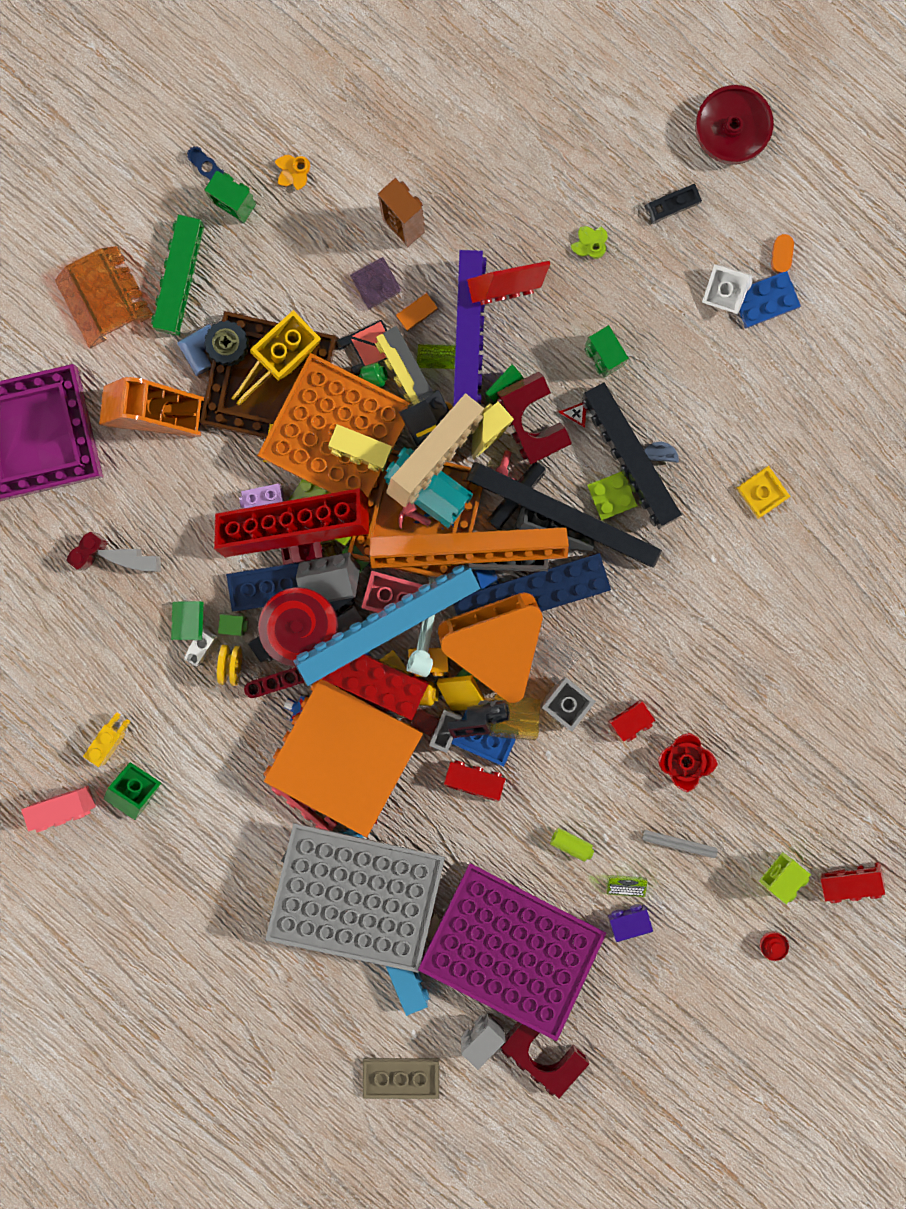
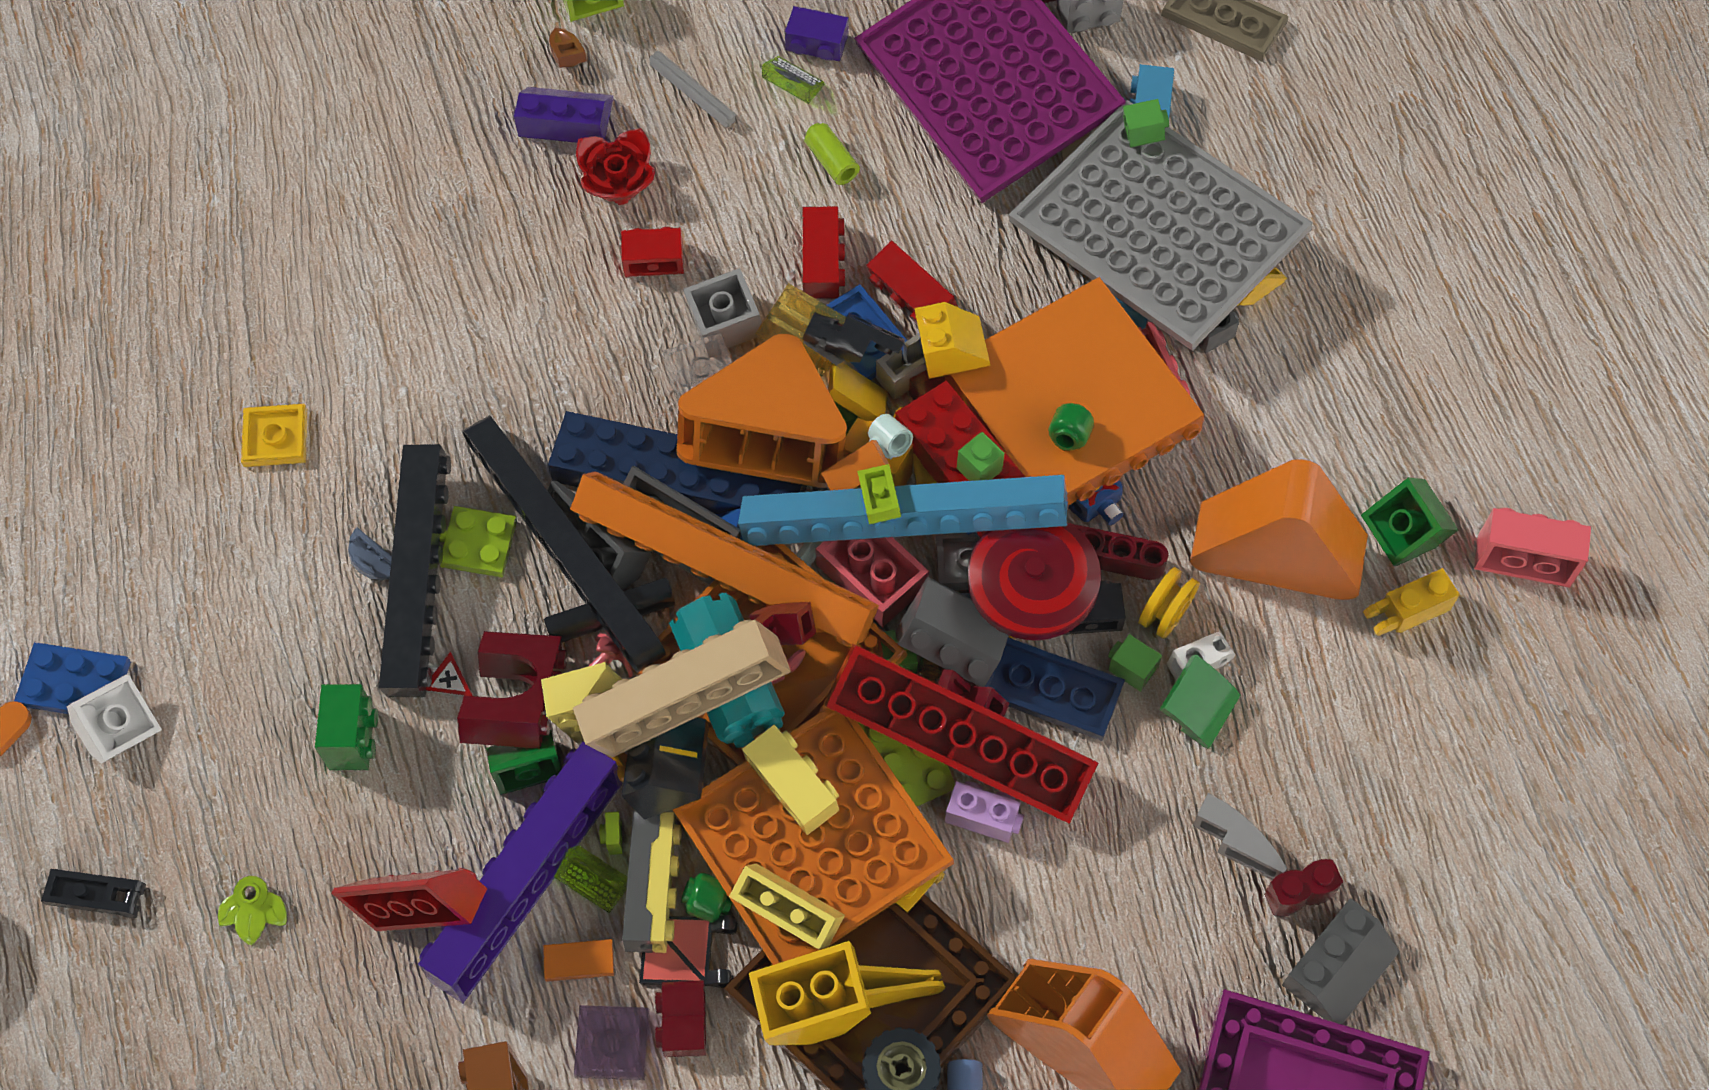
camera: 150 degrees left, 25 degrees down
(52, 523) = (1342, 964): none -> dark grey slope
(191, 734) = (1283, 533): none -> orange brick
(321, 380) = (787, 906): none -> light yellow brick
(328, 729) = (1071, 426): none -> green head
(348, 312) = (682, 1019): none -> dark red brick
(361, 675) = (980, 459): none -> bright green brick
(395, 957) = (1145, 122): none -> bright green brick
(401, 620) = (879, 494): none -> lime plate
(414, 524) = (790, 621): none -> dark red brick
(424, 748) = (951, 339): none -> yellow slope
(426, 634) = (844, 473): none -> orange tile
(439, 380) = (612, 833): none -> lime plate
(537, 776) = (823, 252): none -> red brick
(742, 783) = (561, 114): none -> dark purple slope
(771, 829) = (566, 48): none -> dark orange plate

